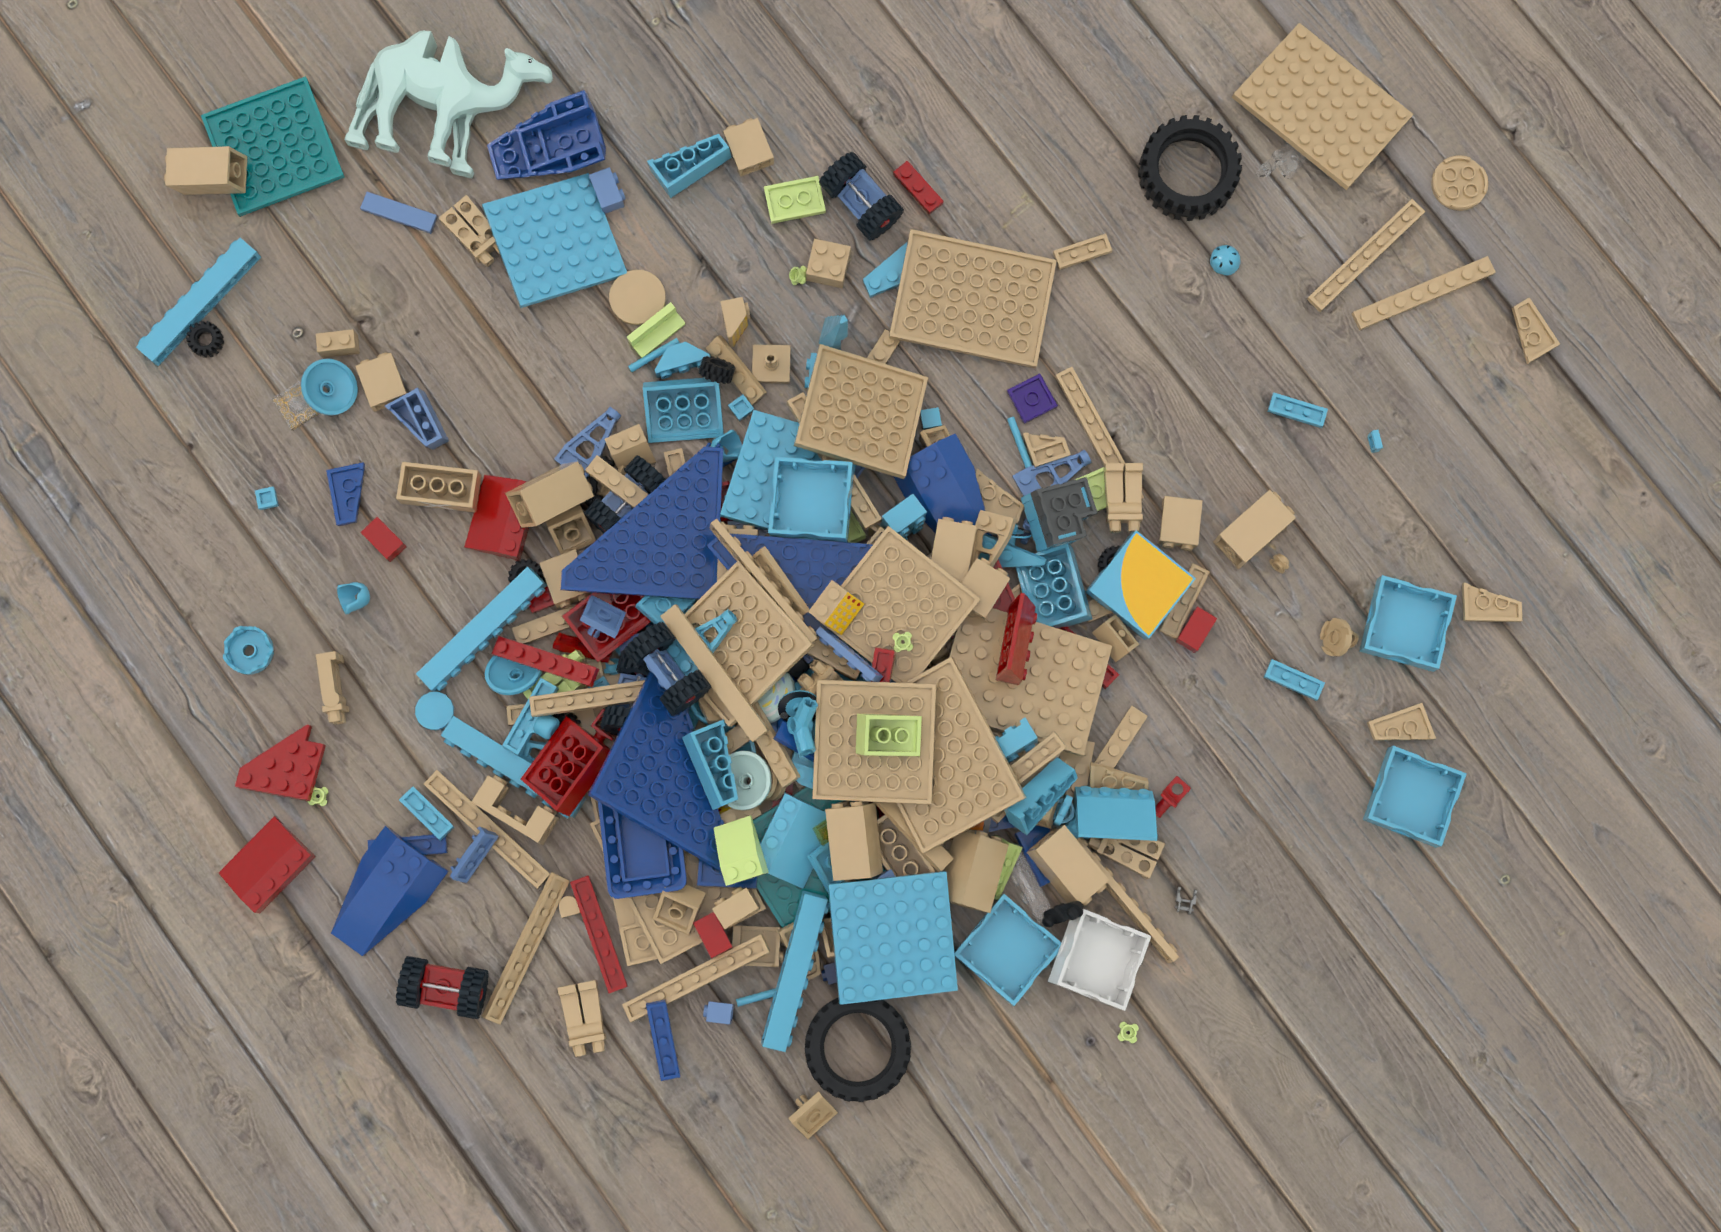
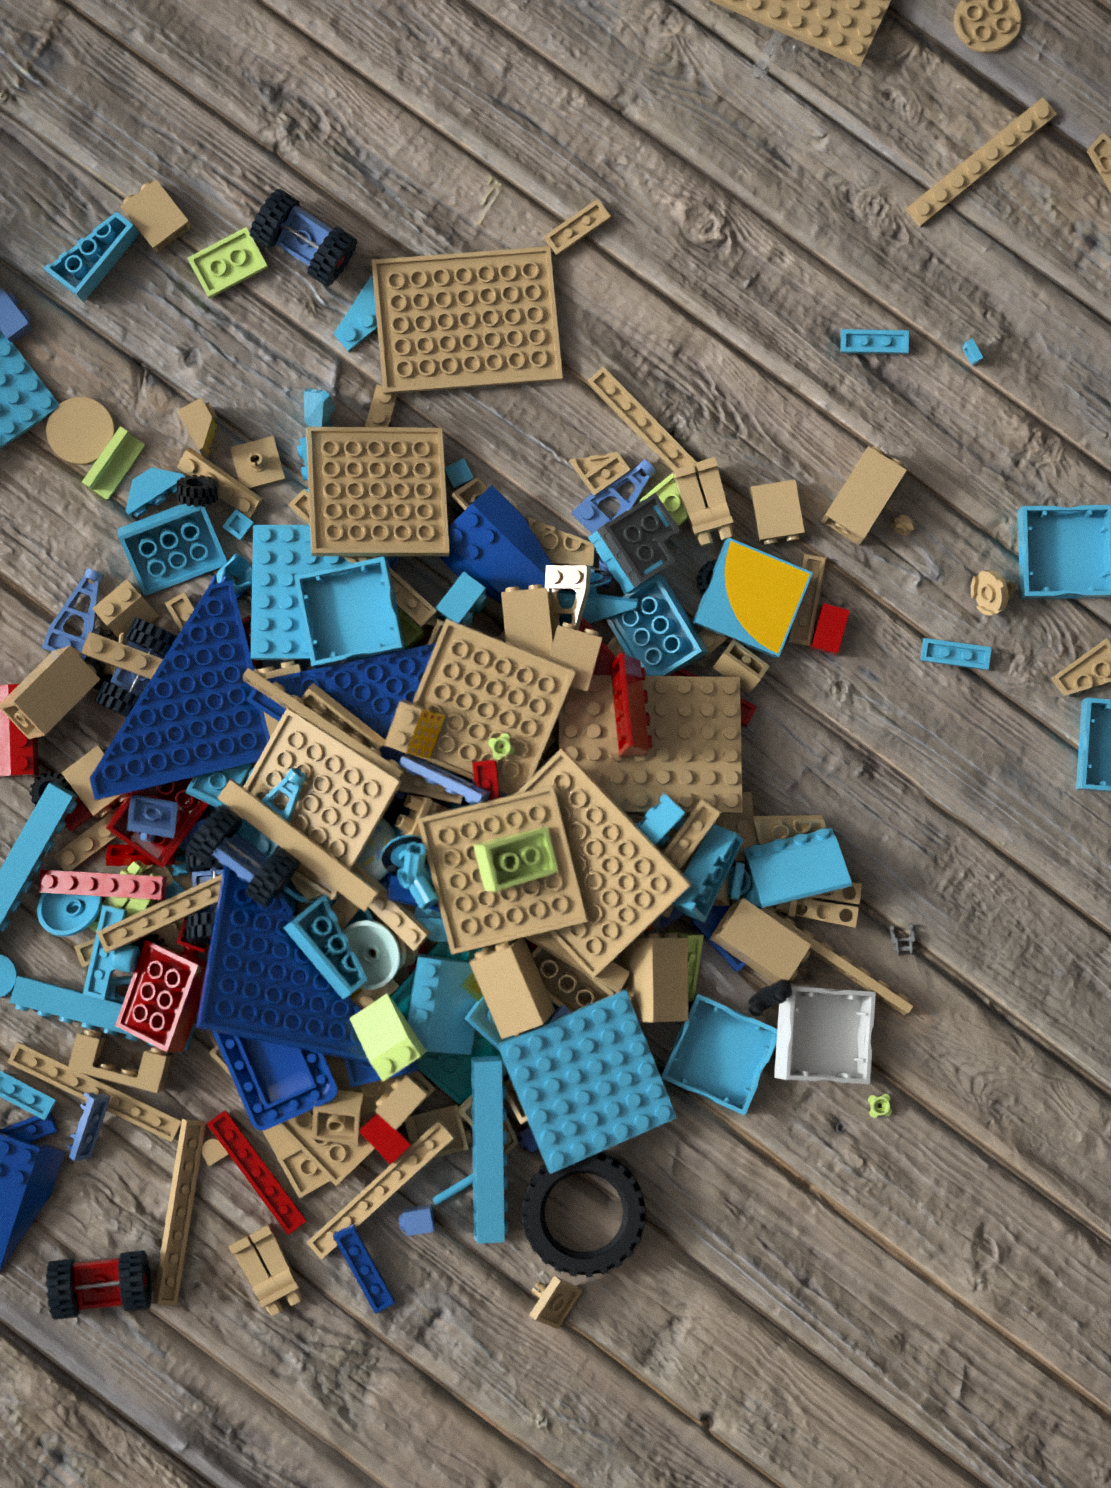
camera: 15 degrees left, 5 degrees up
(571, 530) = (86, 724): tan slope -> none
(651, 356) = (117, 495): medium azure bar -> none
(798, 275) = (257, 350): yellowish green plate -> none
(828, 263) = (288, 327): tan brick -> none
(918, 187) = (366, 206): red plate -> none
(1019, 441) = (568, 471): medium azure bar -> none
(1032, 398) = (568, 416): dark purple tile -> none
(1121, 738) = (779, 778): tan plate -> none
(1169, 798) = (852, 829): red bracket -> none
(1197, 131) = (672, 47): black tyre -> none
(1224, 256) = (741, 186): medium azure helmet -> none
(1366, 255) = (903, 137): tan plate -> none

